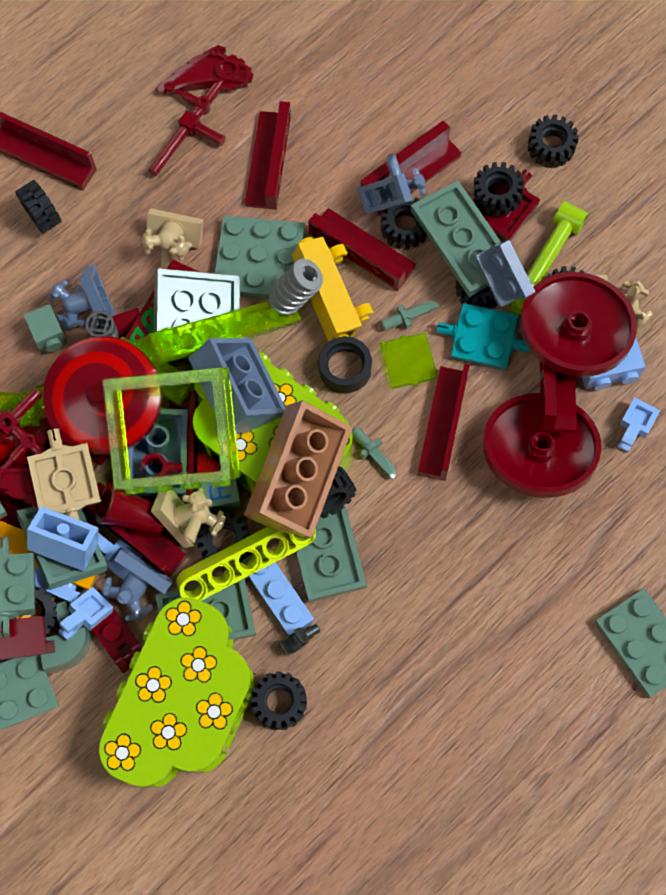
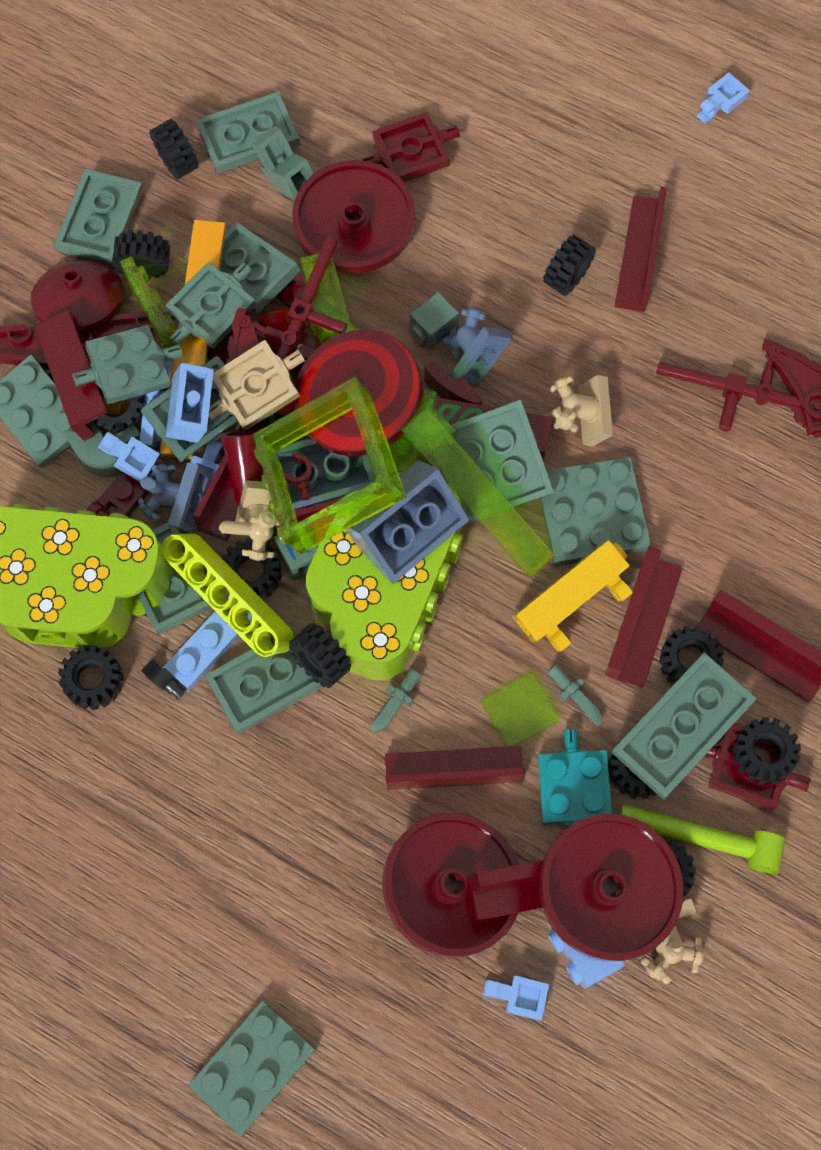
camera: 75 degrees right, 0 degrees up
(100, 318) = (439, 378): flat silver wheel -> none
(268, 158) = (723, 485): dark red panel -> none
(295, 287) = (555, 553): light grey piece -> none
(298, 470) = (322, 612): nougat slope -> none
(345, 344) = (493, 614): black tyre -> none
(391, 190) = (711, 625): sand blue piece -> none
(504, 273) = (642, 778): sand blue bracket -> none

